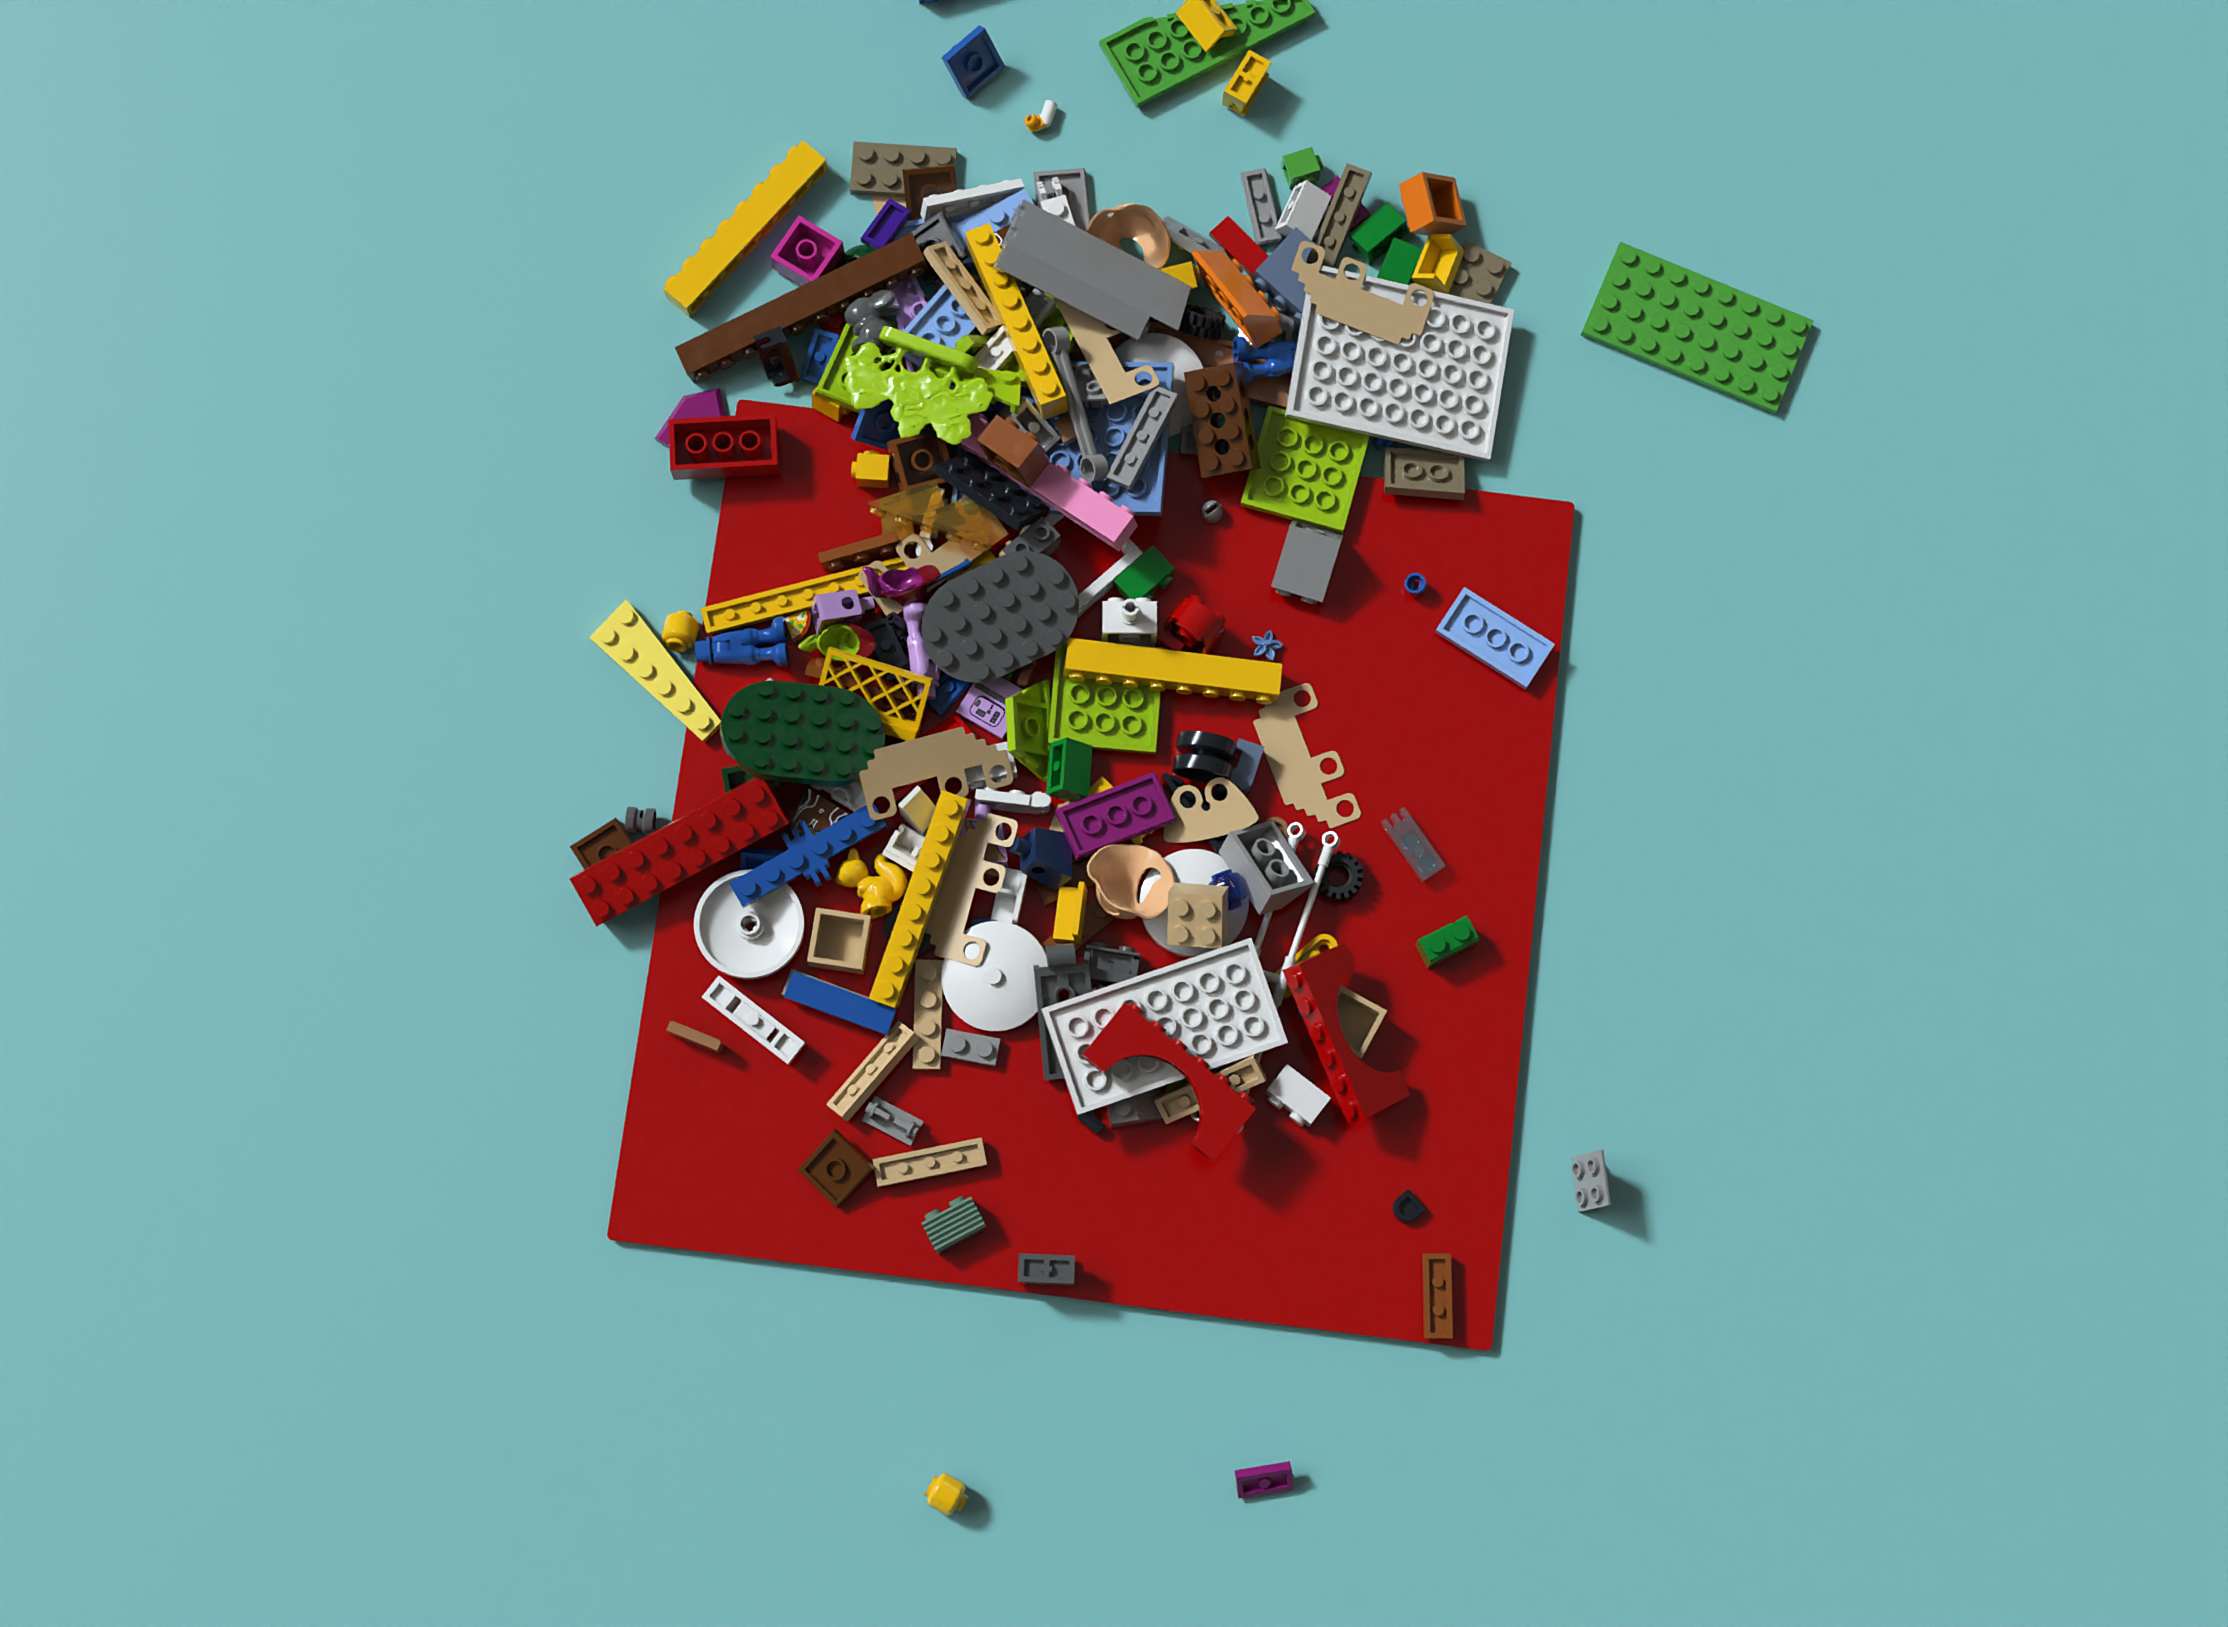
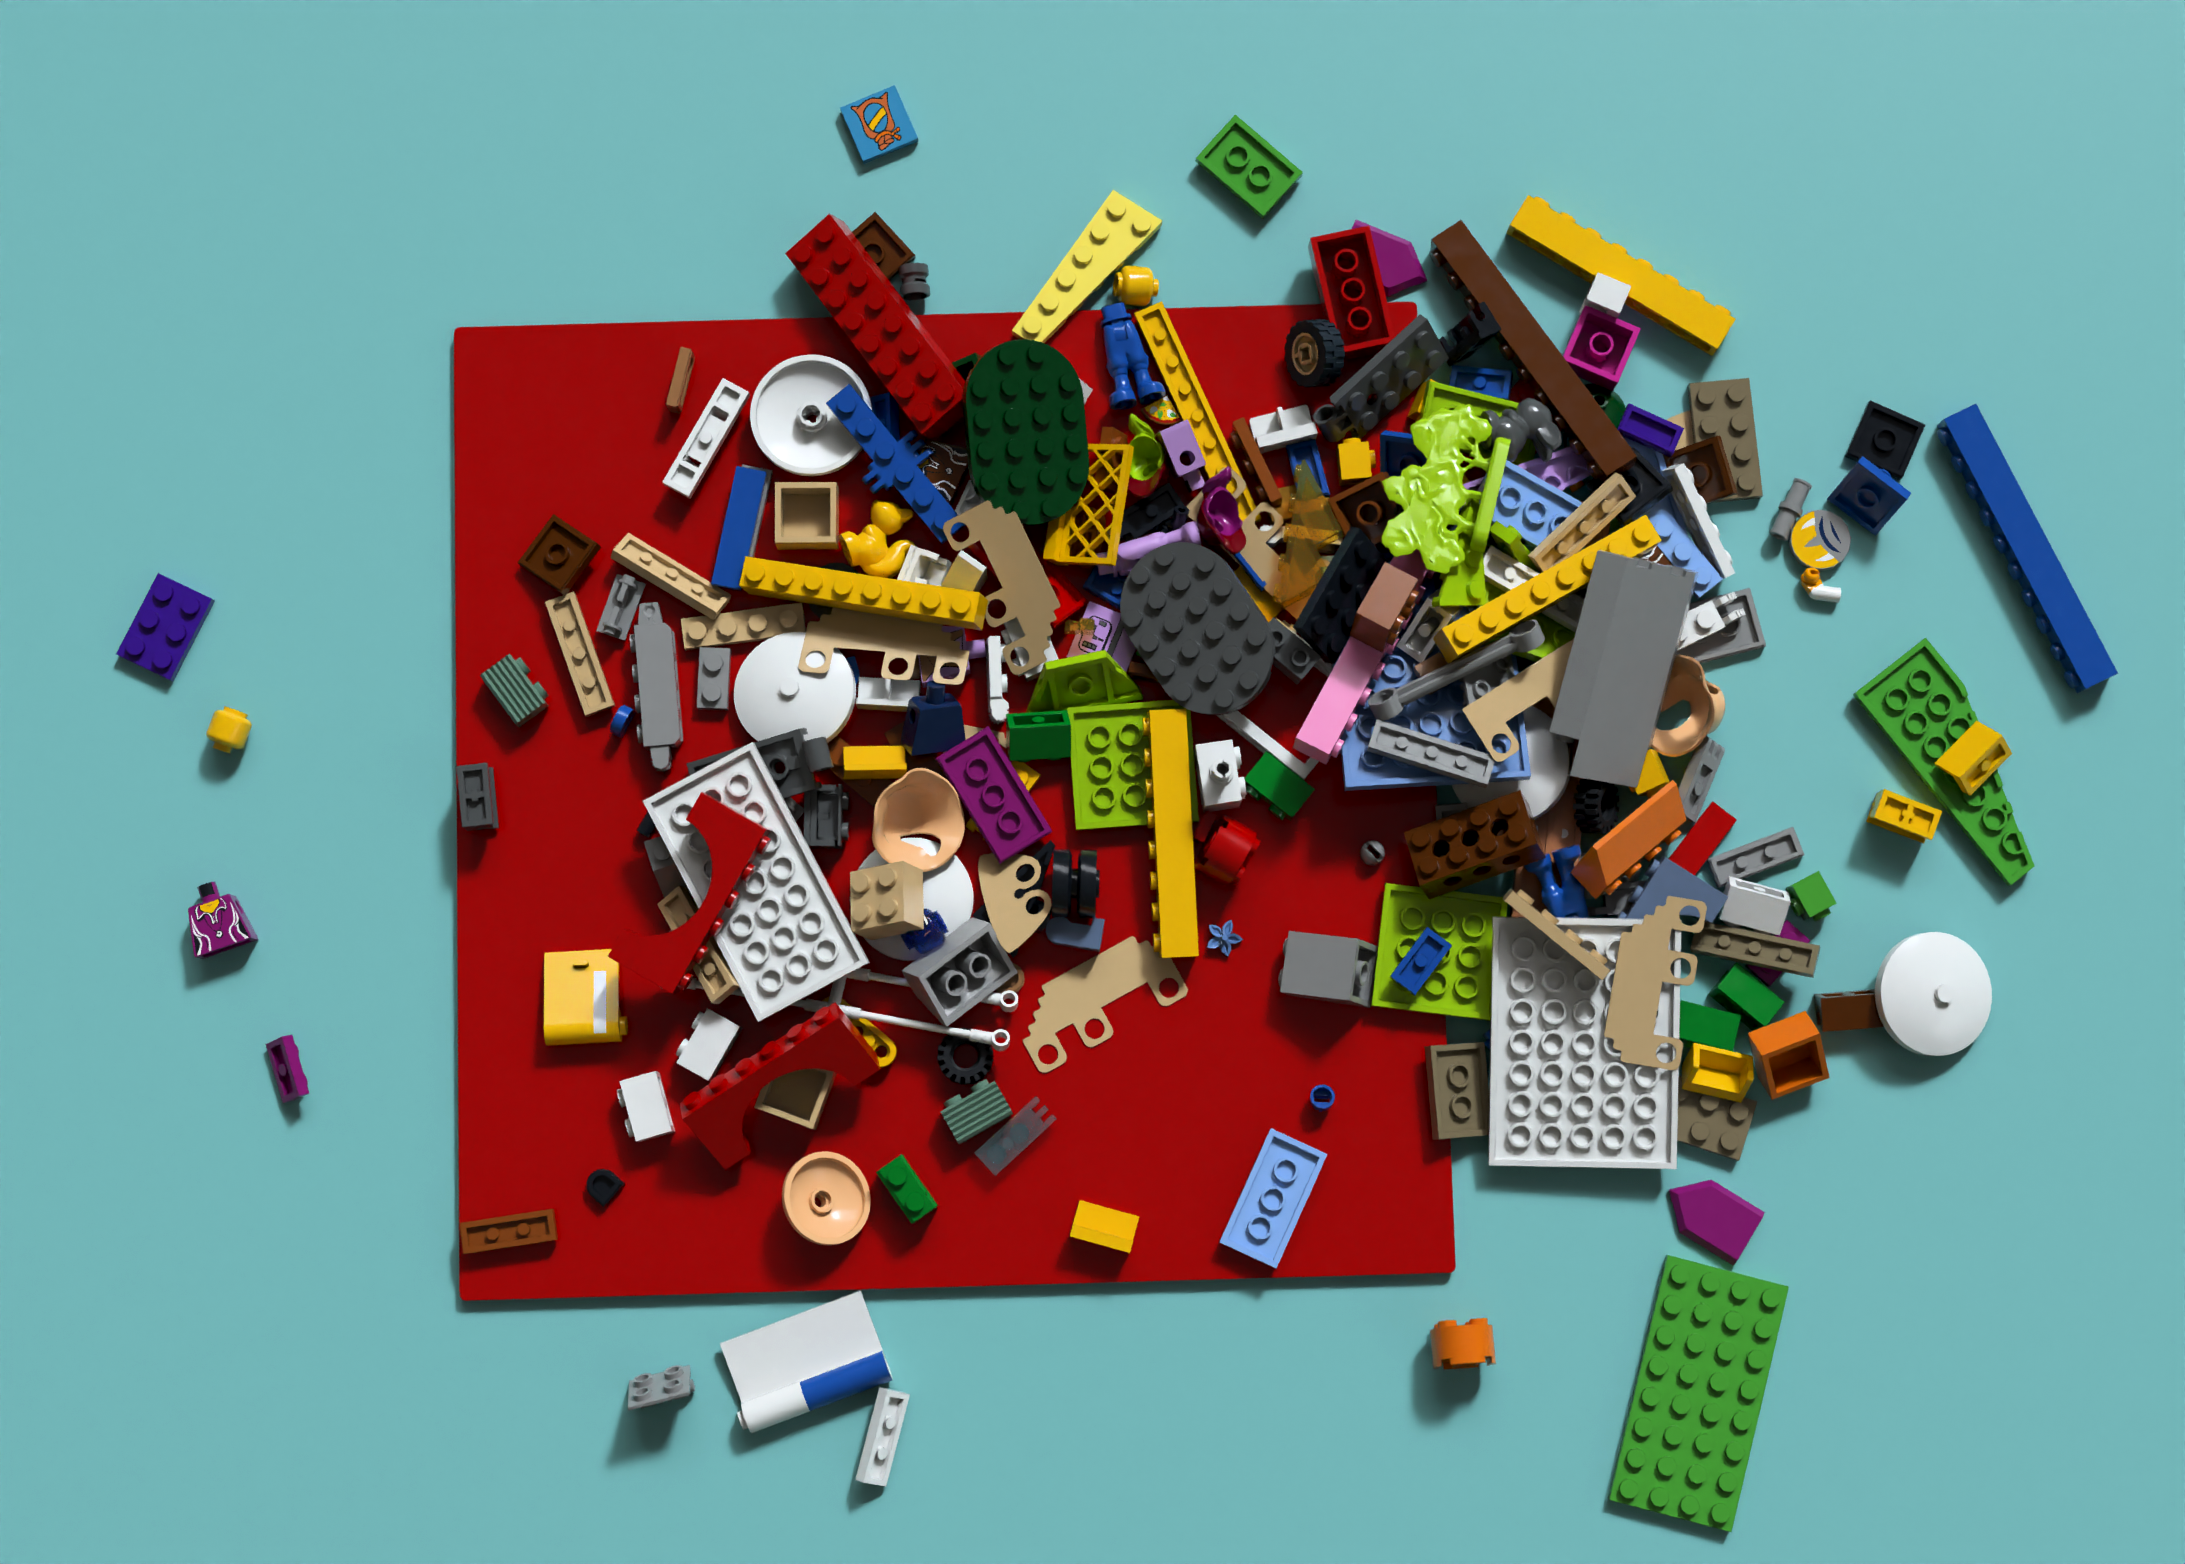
camera: 85 degrees right, 5 degrees up
(489, 832) = (879, 124): none -> dark azure tile
(591, 519) = (1249, 166): none -> bright green plate
(764, 240) = (1606, 295): none -> white panel
(772, 484) = (1314, 353): none -> black wheel
(808, 434) = (1388, 377): none -> dark grey hinge
(830, 523) = (1283, 428): none -> white panel
(839, 1544) = (165, 627): none -> dark purple plate
(858, 513) = (1309, 451): none -> blue tile
(924, 44) = (1885, 439): none -> black tile
(970, 1096) = (658, 686): none -> light grey hinge
(972, 128) = (1790, 509): none -> light grey pin
(979, 718) = (1084, 626): none -> clear yellow tile
(996, 1133) = (622, 721): none -> blue tile
(1001, 110) = (1819, 540): none -> tile
(1122, 1526) = (218, 923): none -> magenta torso
(1242, 1203) = (582, 1002): none -> yellow door
(1313, 482) = (1420, 961): none -> blue plate
(1317, 355) = (1547, 924): none -> tan plate
(1344, 1158) = (645, 1106): none -> white brick
(1387, 873) = (976, 1111): none -> sand green brick
(1396, 86) = (1933, 994): none -> white dish
(1399, 154) = (1847, 1010): none -> reddish brown hinge
(1447, 1000) = (842, 1196): none -> light nougat dish
(1500, 782) = (1104, 1226): none -> yellow panel
(1556, 290) = (1715, 1218): none -> magenta tile
(1582, 1054) = (805, 1362): none -> white door
(1636, 503) = (1462, 1344): none -> orange brick
(1654, 997) = (882, 1437): none -> white plate

